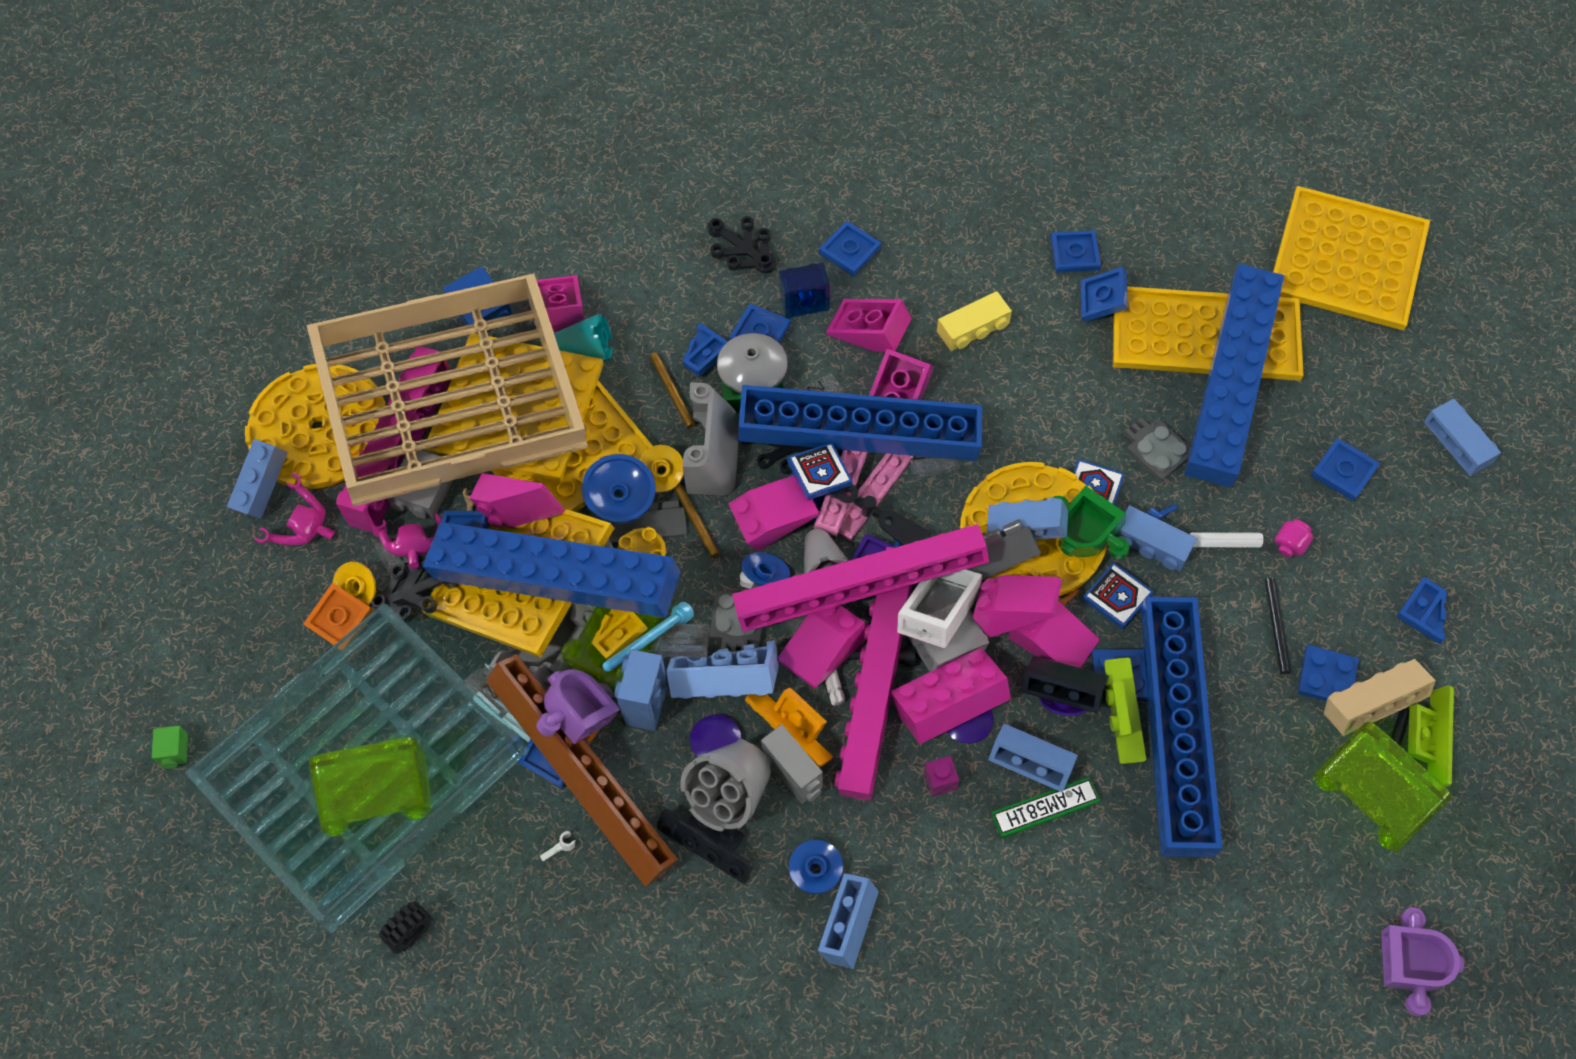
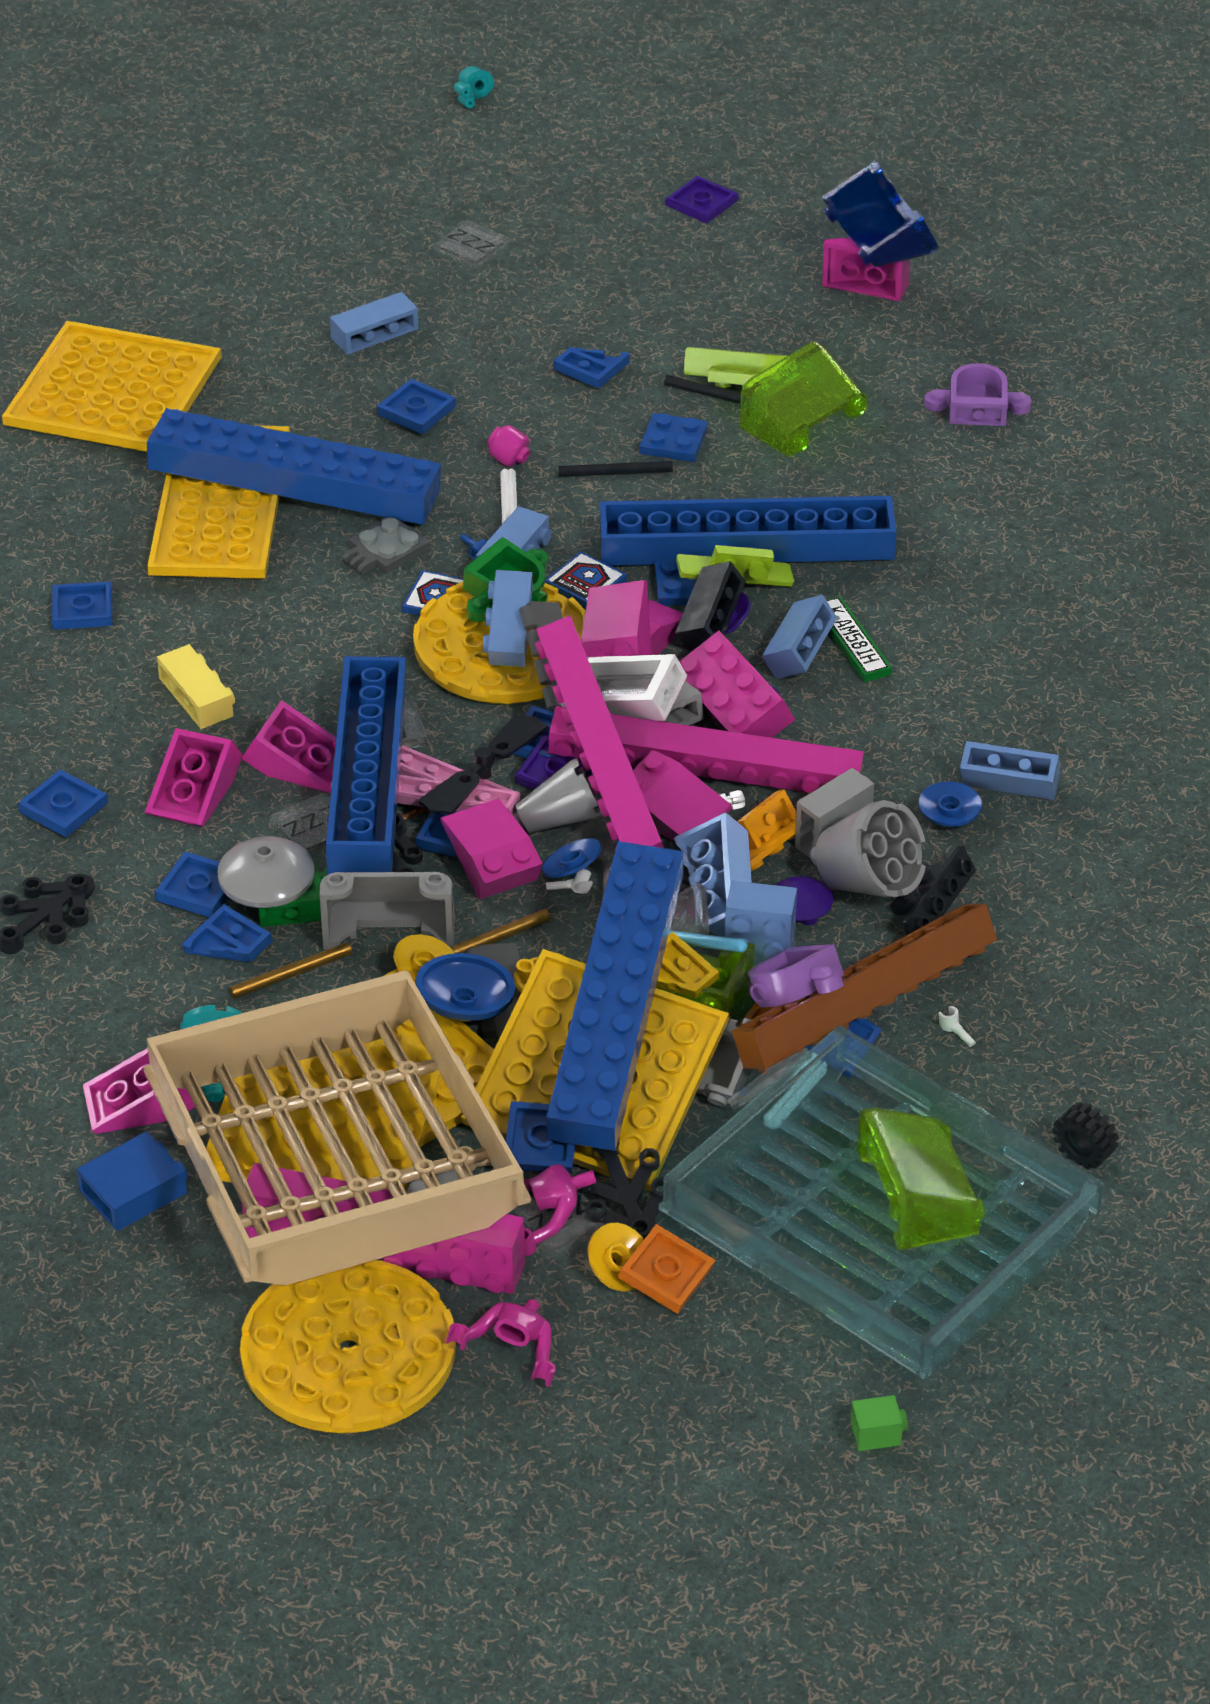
camera: 95 degrees left, 20 degrees down
(257, 479) = (456, 1376): medium blue brick -> none
(513, 501) = (504, 1064): dark pink slope -> none
(804, 290) = (143, 829): clear blue brick -> none
(819, 471) = (440, 795): tile -> none
(941, 776) = (829, 707): magenta brick -> none
(1104, 294) = (163, 572): blue plate -> none
(1379, 696) = (704, 391): tan brick -> none

